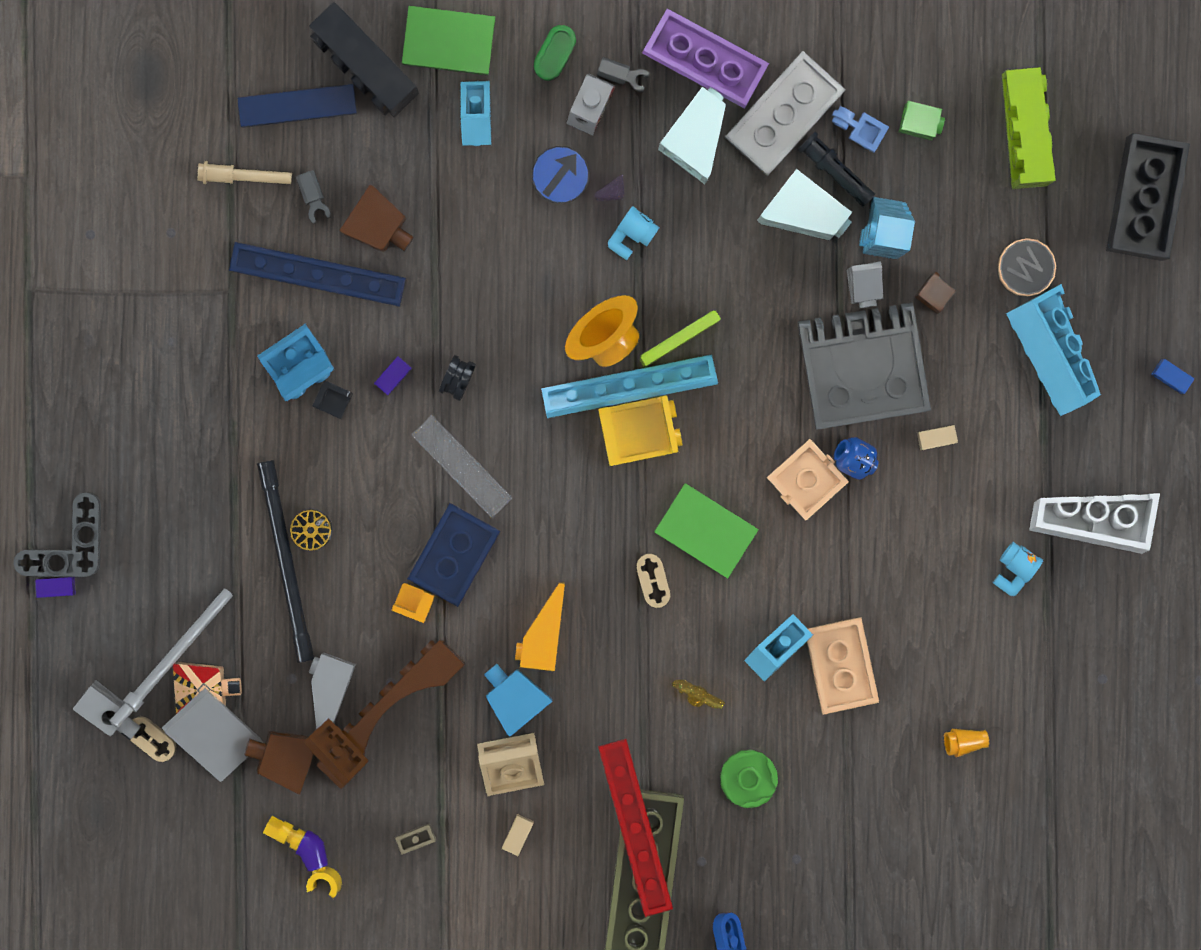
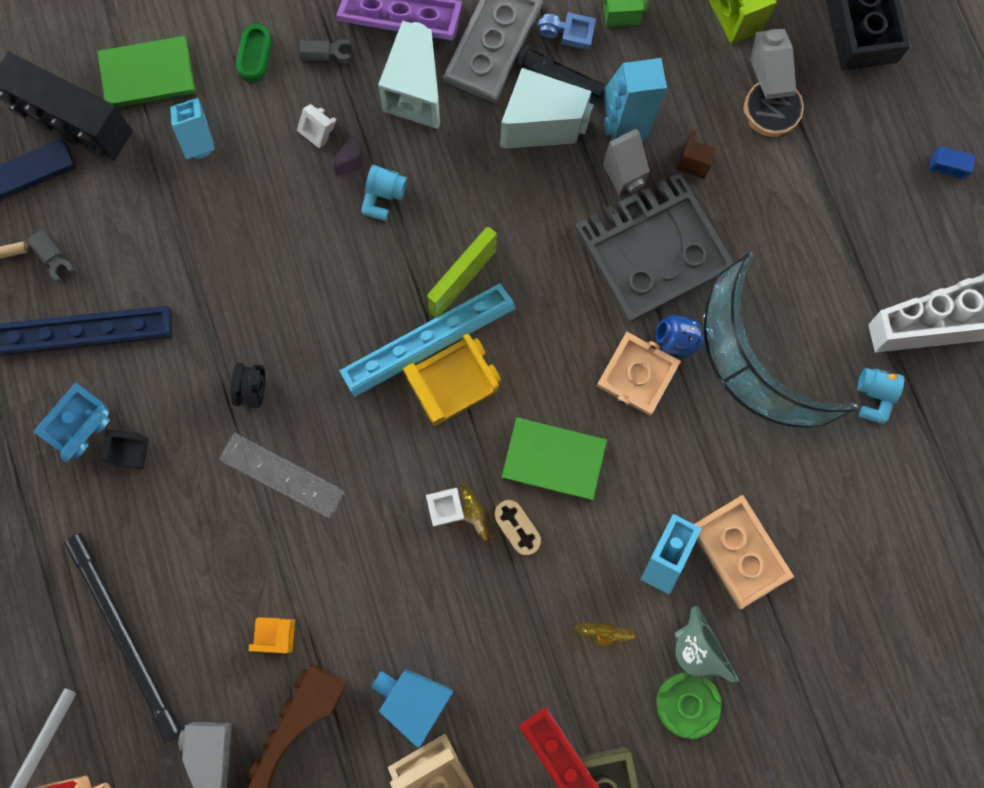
camera: 25 degrees left, 10 degrees down
(311, 530) = (141, 593): wheel -> none
(376, 222) = (121, 260): reddish brown torso -> none
(393, 376) = (183, 406): dark purple piece -> none
(453, 554) = (301, 570): dark blue tile -> none
(541, 639) = (420, 628): light orange slope -> none
(560, 174) = (293, 158): blue piece -> none
(590, 104) = (300, 75): light grey torso -> none
(591, 147) = (315, 125): none -> white tile
(596, 543) = (445, 507): none -> white tile
(605, 332) = (387, 291): light orange hose -> none
(620, 554) = (474, 512): none -> clear yellow piece
(775, 738) = (700, 651): none -> sand green hat
(896, 501) = (742, 372): none -> clear light blue windscreen
(937, 437) = (755, 289): tan piece -> none
(962, 742) = (894, 589): light orange cone -> none
(1039, 230) = (774, 63): none -> light grey slope
(1055, 350) = (833, 172): medium azure wedge -> none

